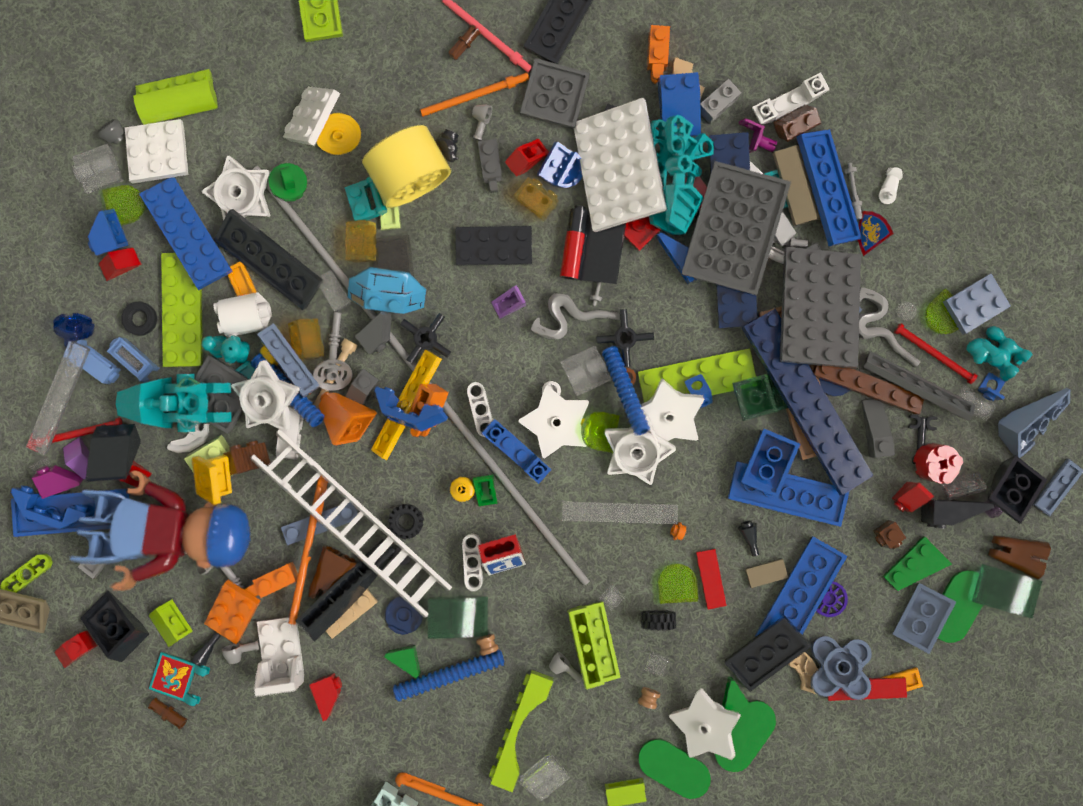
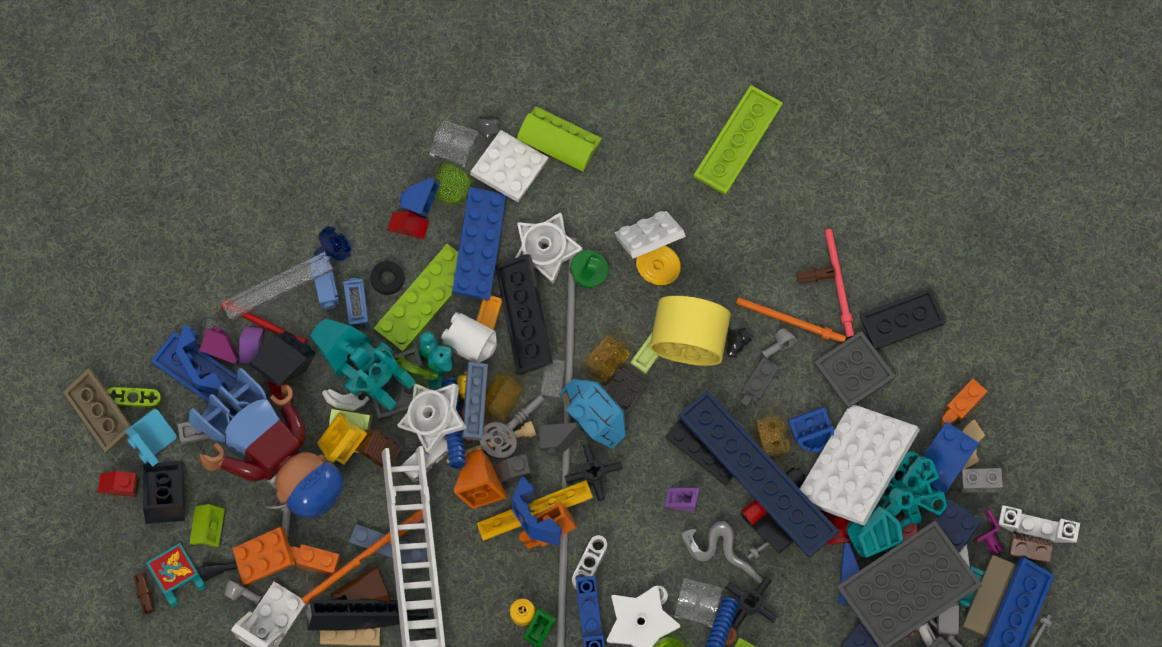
camera: 35 degrees right, 15 degrees down
(64, 595) = (150, 436): none -> medium azure bracket
(220, 373) = (416, 368): none -> clear neon green tile
(360, 201) = (632, 328): teal plate -> none
(417, 521) = (465, 592): black tyre -> none
(526, 157) = (791, 399): red slope -> none
(550, 235) = (758, 474): none -> dark blue plate

